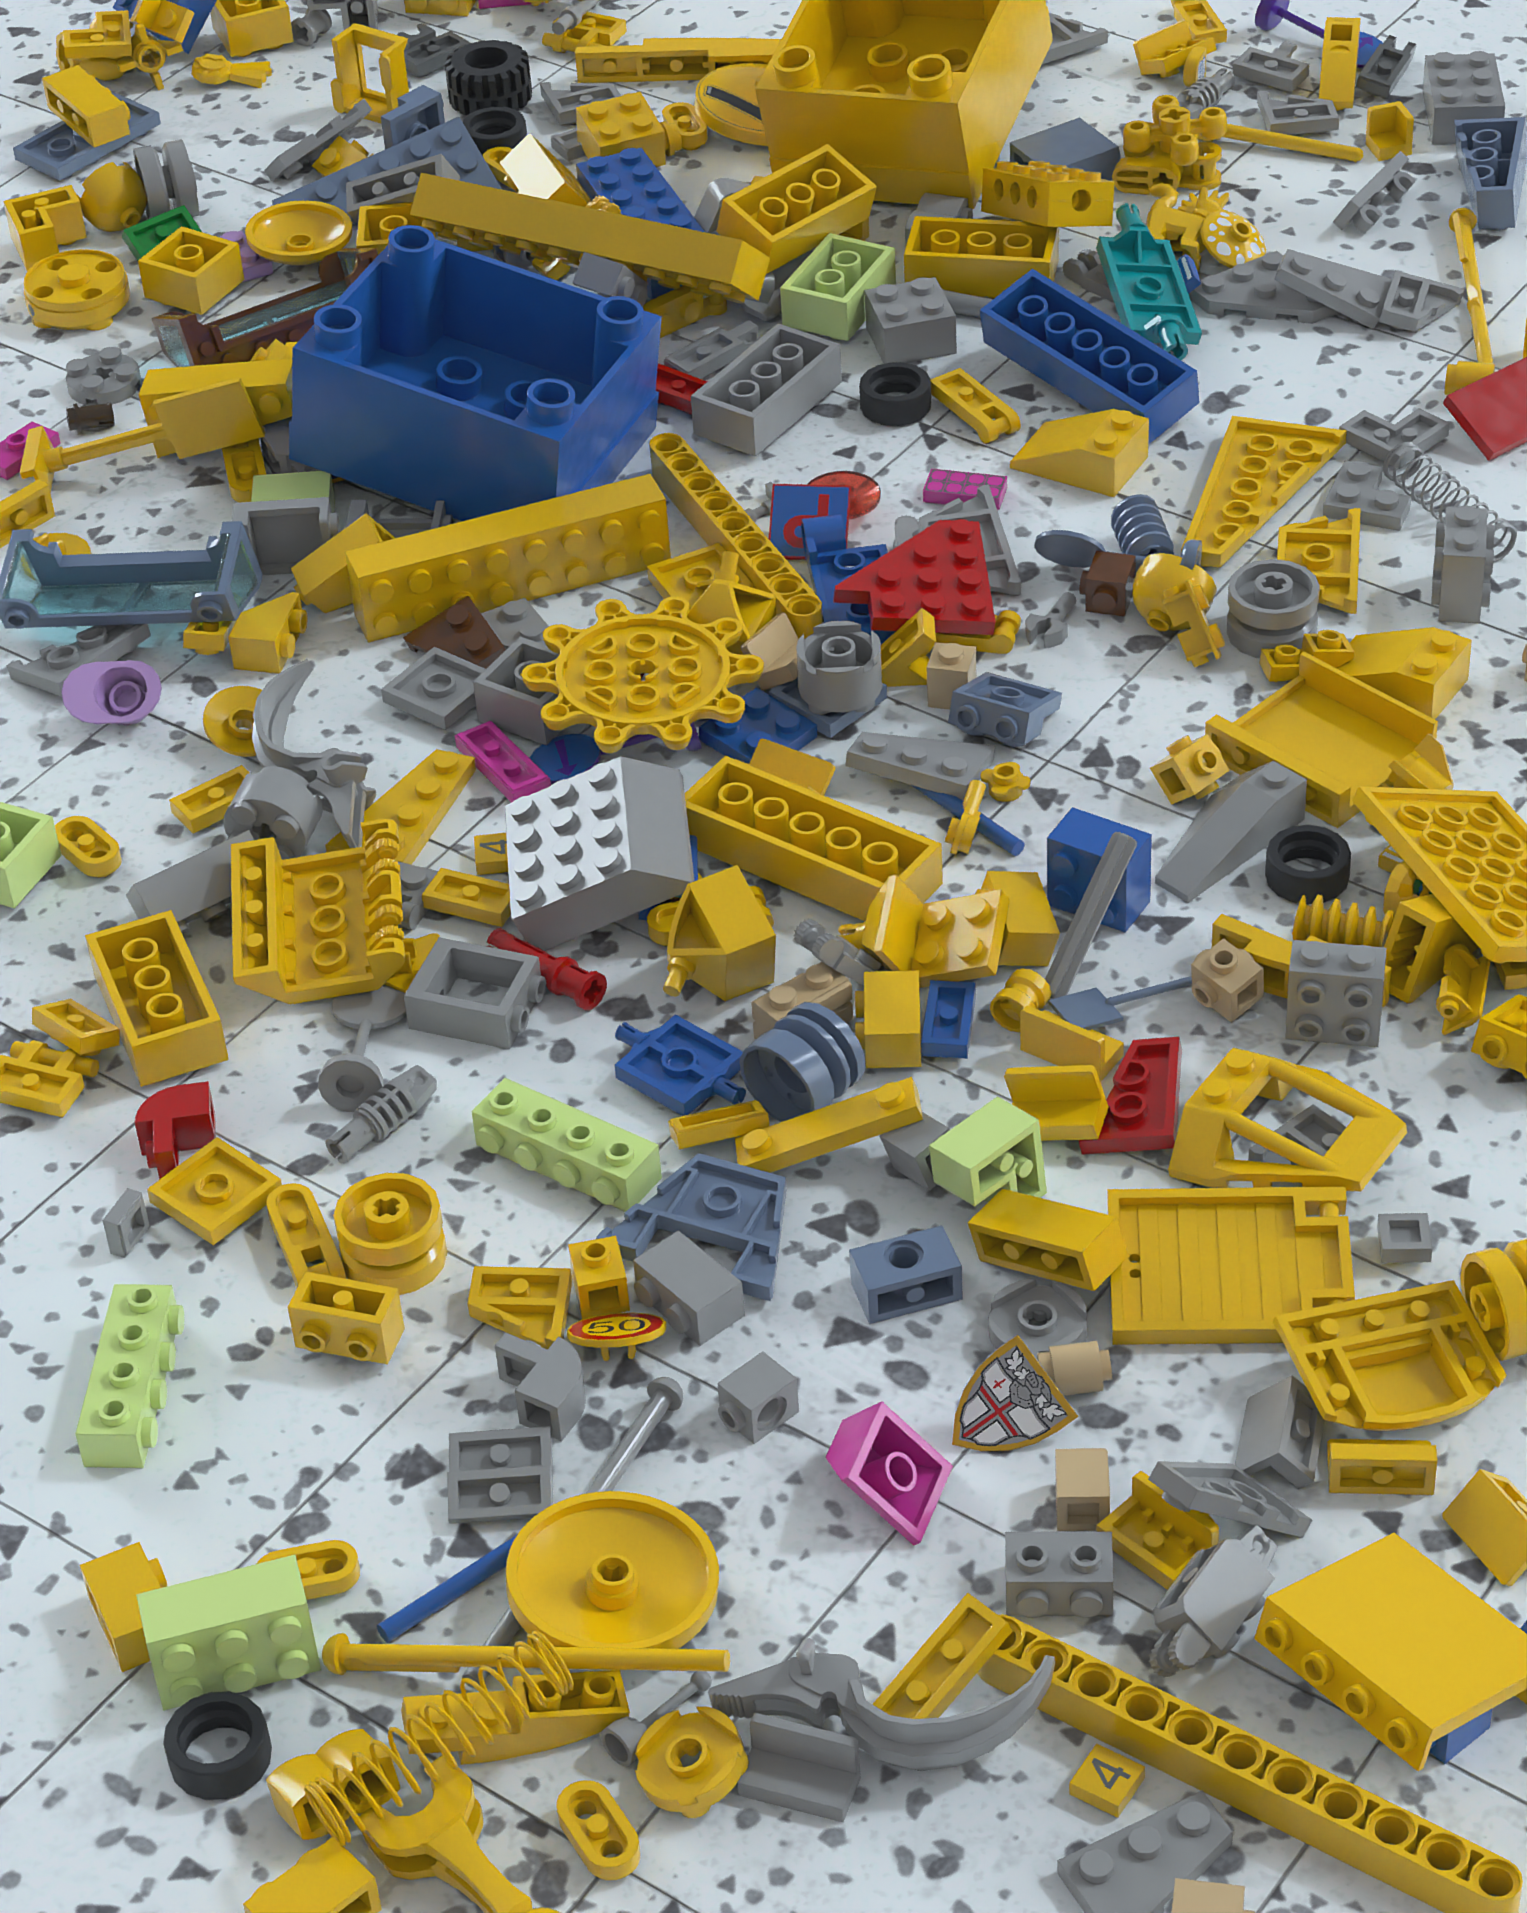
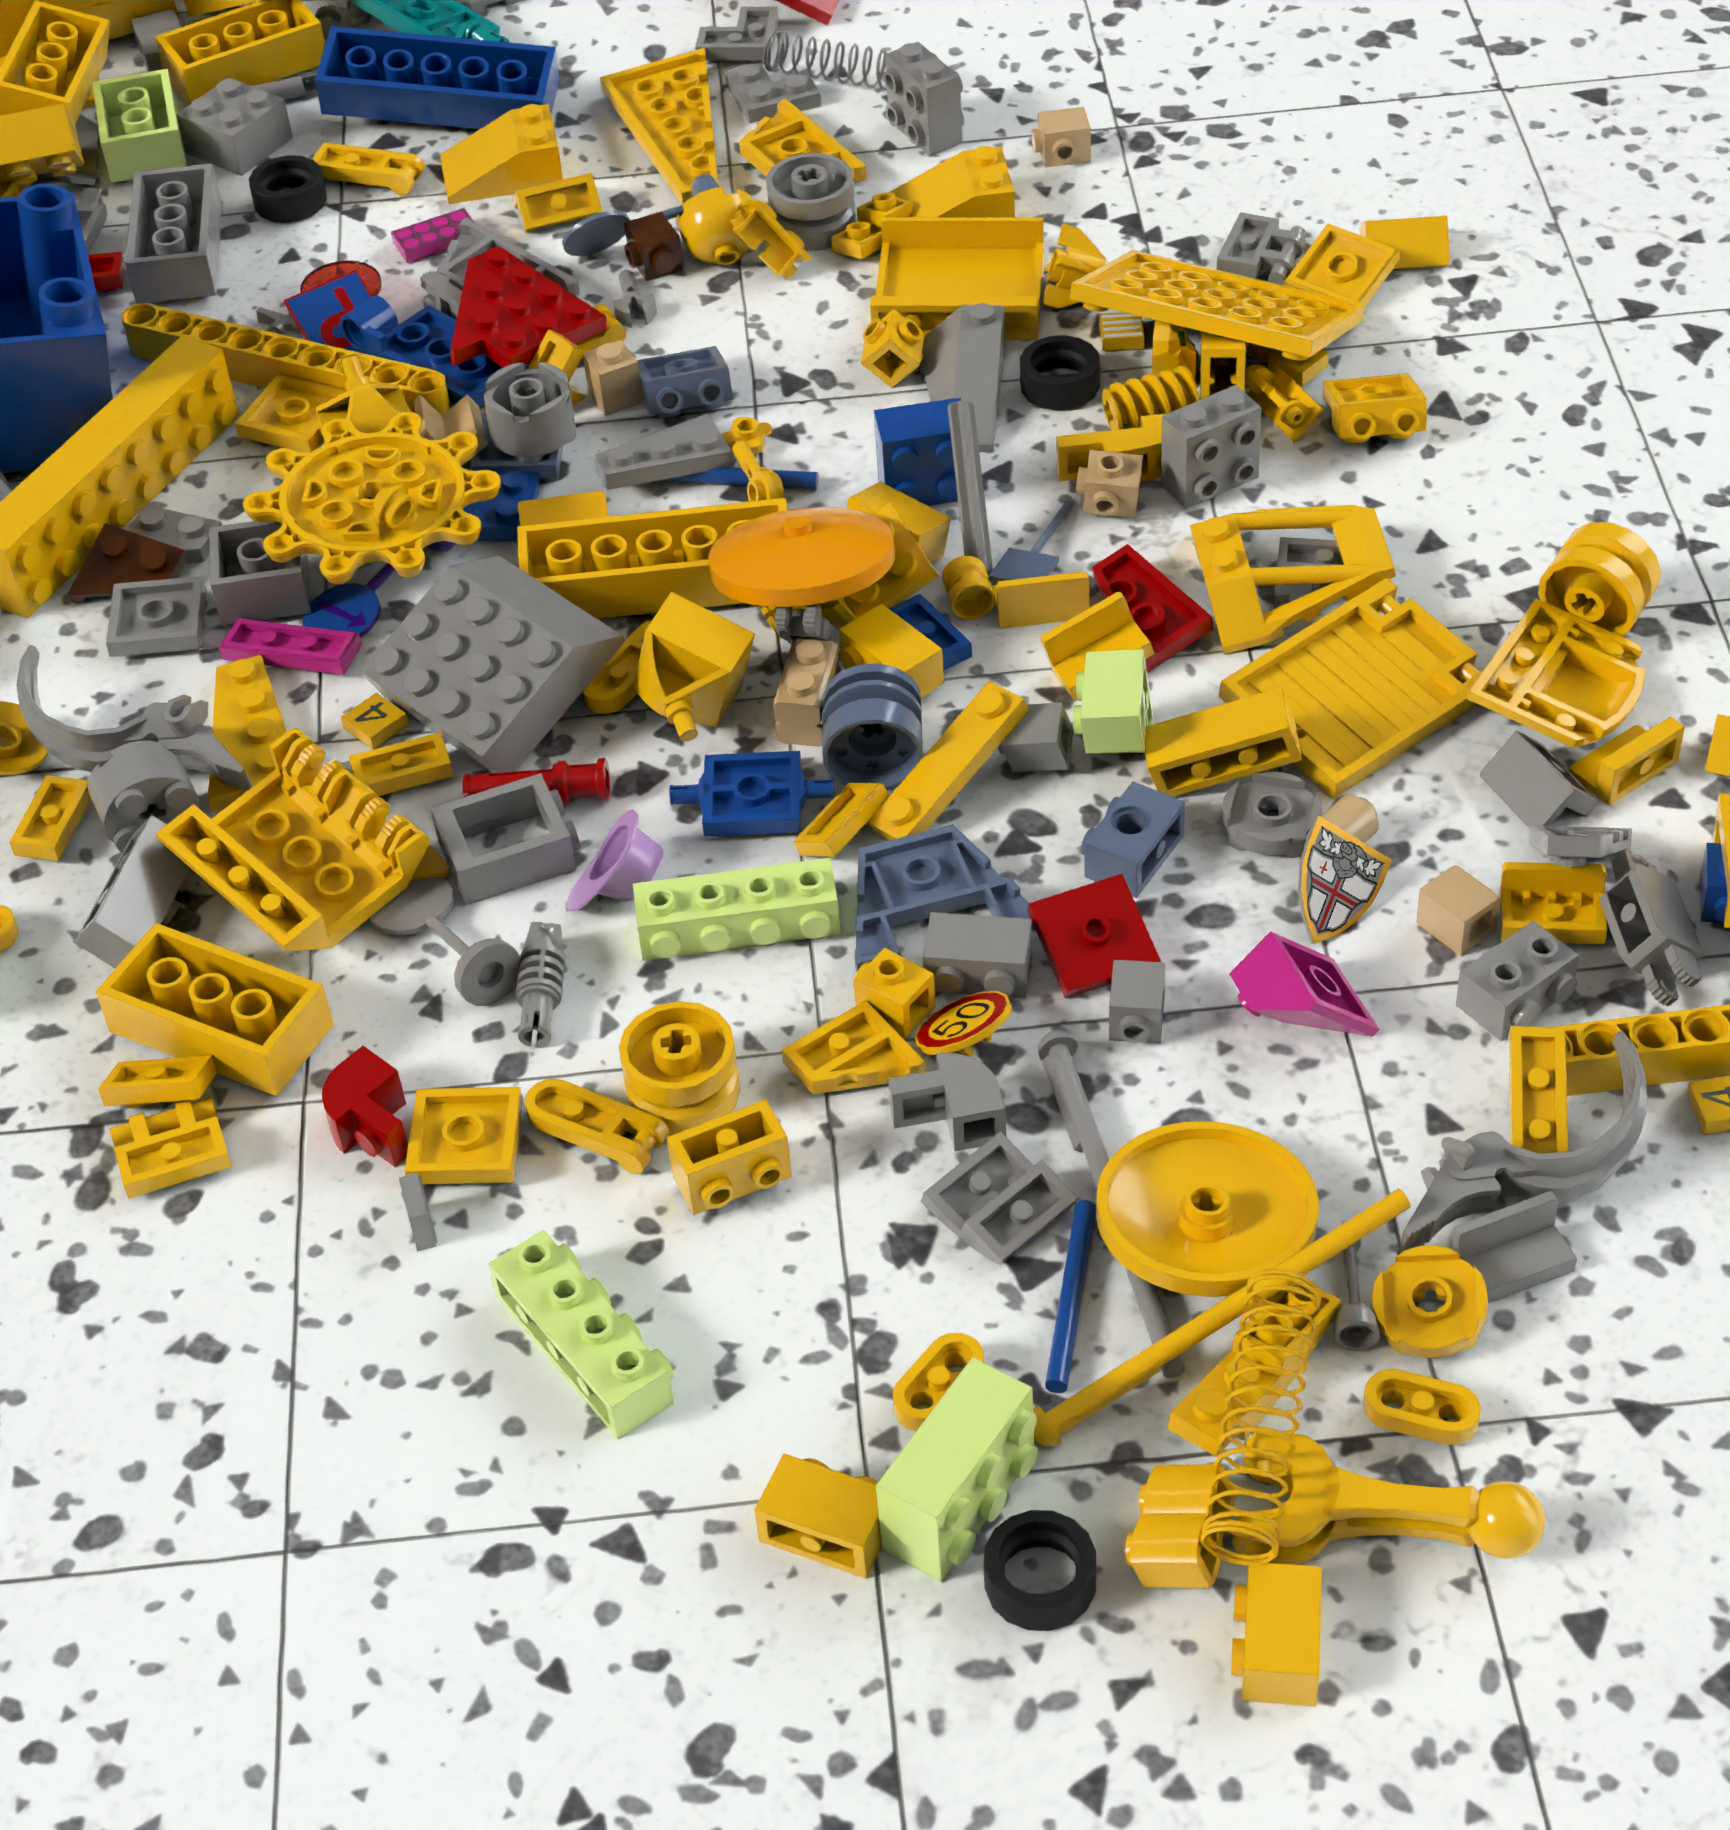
camera: 40 degrees left, 5 degrees up
(532, 1064) = (624, 859): none -> lavender piece
(630, 686) = (392, 505): none -> yellow plate
(789, 1322) = (1090, 930): none -> red plate
(875, 894) = (801, 556): none -> light orange dish
(1078, 507) = (557, 202): none -> yellow panel
(1140, 527) = (635, 192): sand blue piece -> none
(1404, 1237) = (1453, 594): light grey plate -> none

